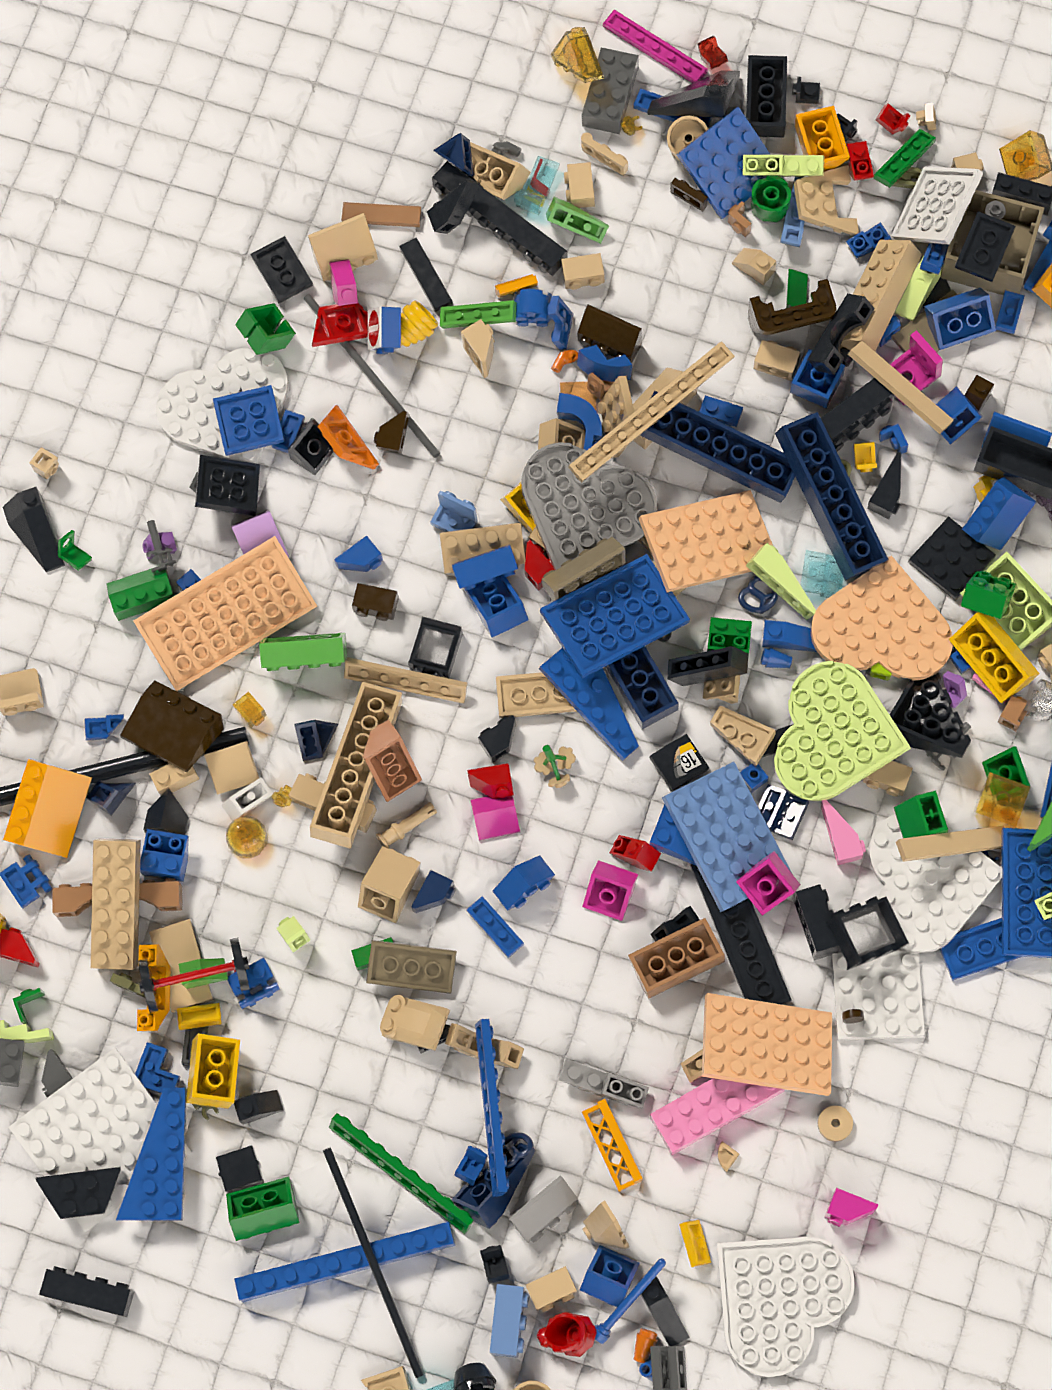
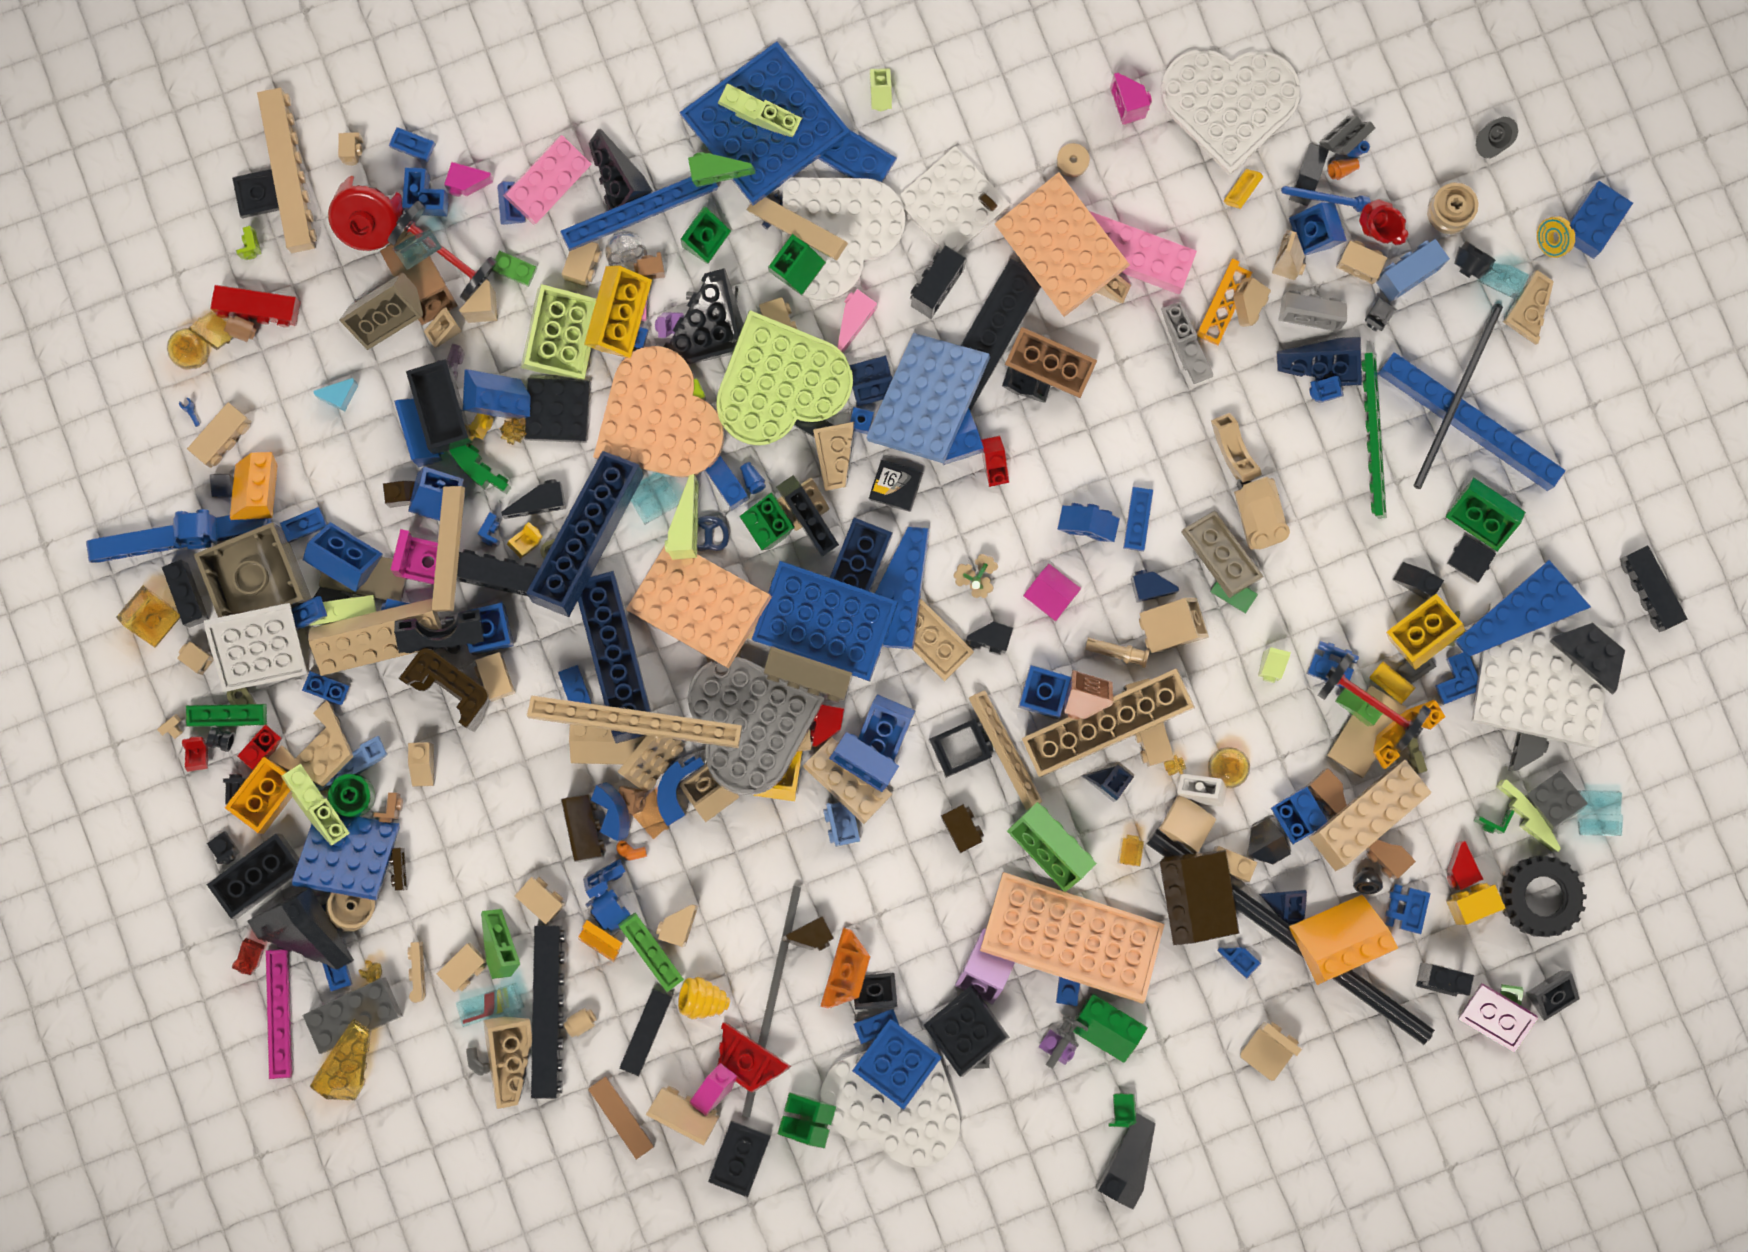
camera: 140 degrees left, 10 degrees up
(48, 464) = (1071, 1203): tan brick -> none
(72, 868) = (1368, 881): none -> black brick
(360, 557) = (934, 871): blue slope -> none
(384, 329) = (728, 1017): blue piece -> none
(424, 740) = (1044, 692): none -> blue brick
(450, 211) = (572, 1053): black slope -> none
(458, 153) = (517, 1093): dark blue slope -> none
(471, 234) = (580, 1022): none -> tan brick
(492, 780) = (1029, 612): red slope -> none
(492, 1115) = (1282, 397): blue plate -> none
(509, 1145) = (1290, 369): dark blue piece -> none
(596, 1166) = (1249, 300): none -> tan slope
(610, 890) = (1038, 456): dark pink slope -> none
(726, 1156) = (1161, 217): tan tile -> none
(768, 883) = (940, 336): dark pink slope -> none
(796, 288) = (418, 711): green slope -> none
(867, 931) = (919, 235): window -> none
(890, 142) = (220, 739): none -> black wheel
(947, 463) = (469, 461): none -> green slope
(960, 510) = (512, 431): none -> clear yellow gear
(985, 246) = (270, 571): black plate -> none
(988, 594) = (572, 349): green slope -> none
(995, 209) = (229, 590): flat silver plate -> none
(1002, 799) = (732, 220): clear yellow slope -> none
(1023, 1013) = (880, 89): none -> yellowish green slope

